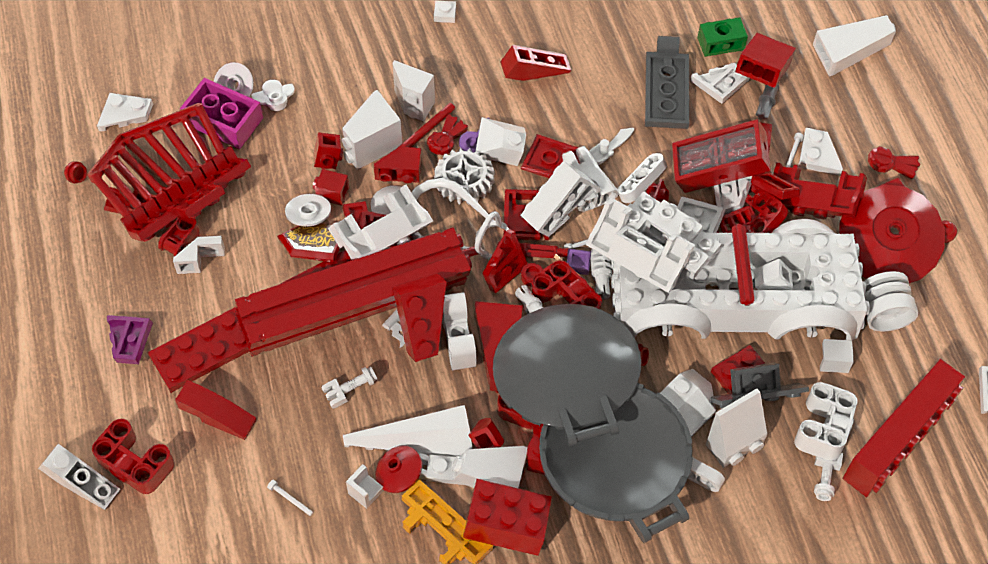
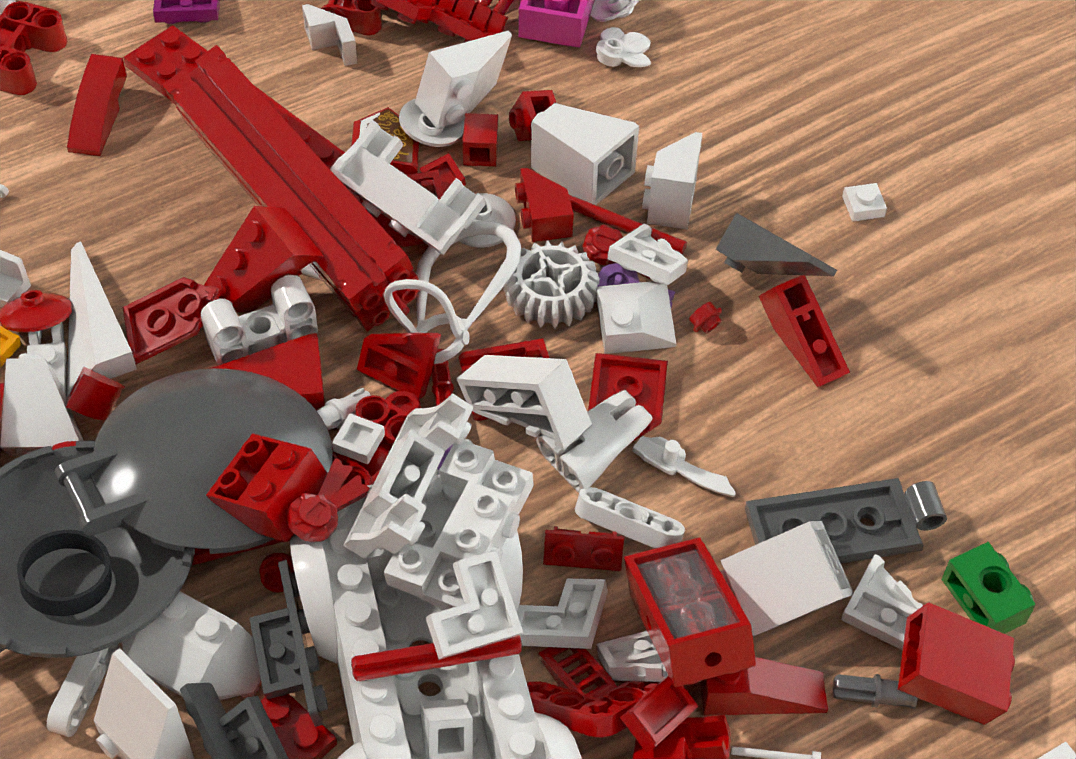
camera: 75 degrees right, 5 degrees down
(292, 177) = (460, 78): none -> white slope
(337, 393) = (177, 247): white hinge -> none
(432, 384) = (166, 317): none -> red tile
(465, 118) = (647, 256): none -> white wing
(480, 62) = (766, 253): none -> dark grey wedge
(510, 107) = (706, 318): none -> red plate
(568, 288) = (358, 438): none -> white plate
(615, 324) = (265, 482): none -> red slope
(630, 435) = (64, 540): none -> black tyre
(643, 301) = (316, 516): none -> red piece
(700, 352) = (283, 652): none -> dark grey bracket
(703, 107) = (786, 576): none -> white slope
(731, 228) = (487, 611): none -> white plate

